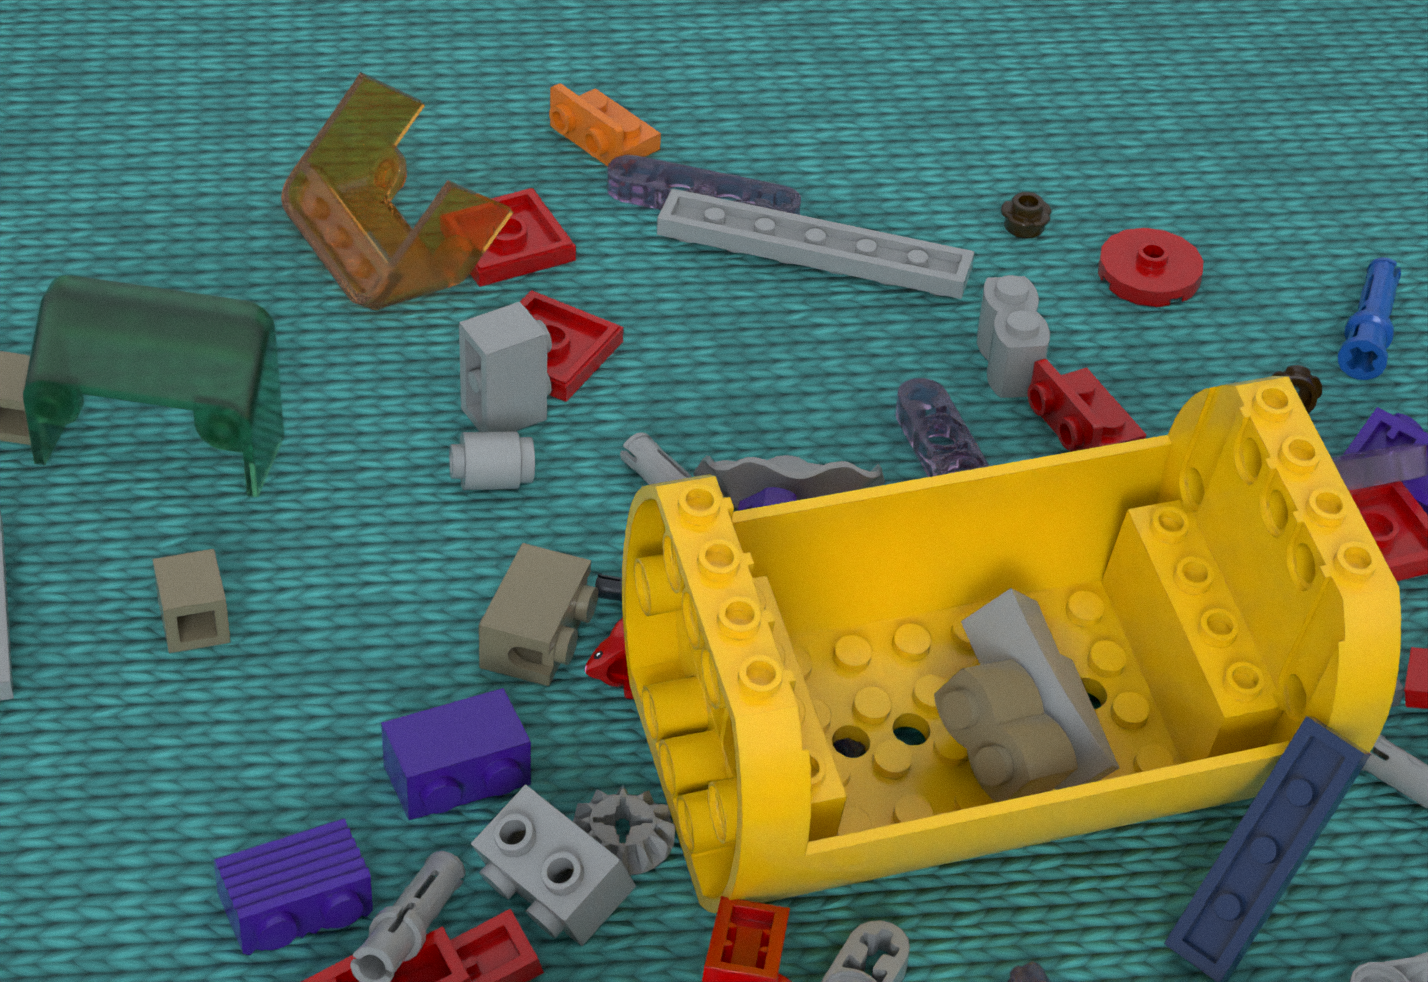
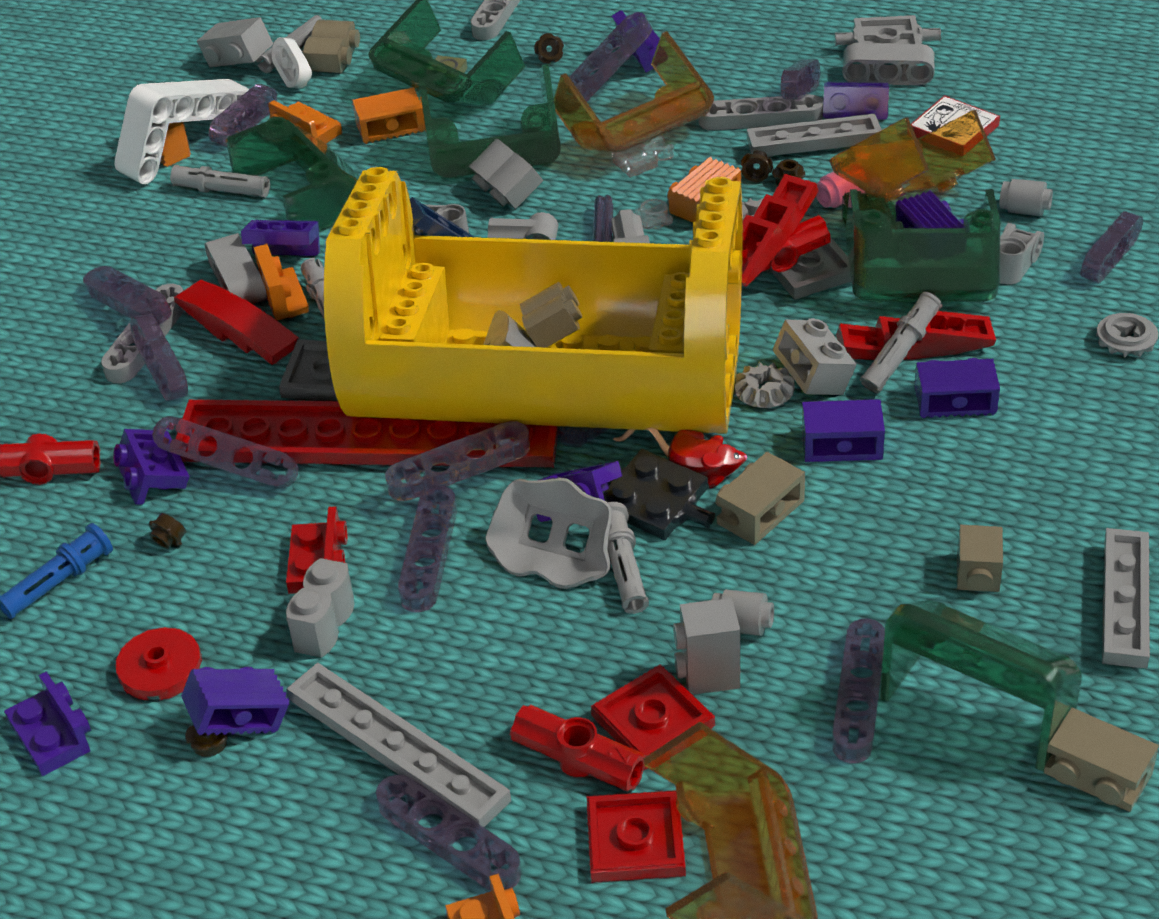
camera: 150 degrees left, 0 degrees up
(311, 422) = (859, 689): none -> beam
(609, 276) = (578, 747): none -> red piece
(1014, 212) = (234, 700): none -> dark purple brick
(1198, 185) = (50, 727): none -> dark purple bracket

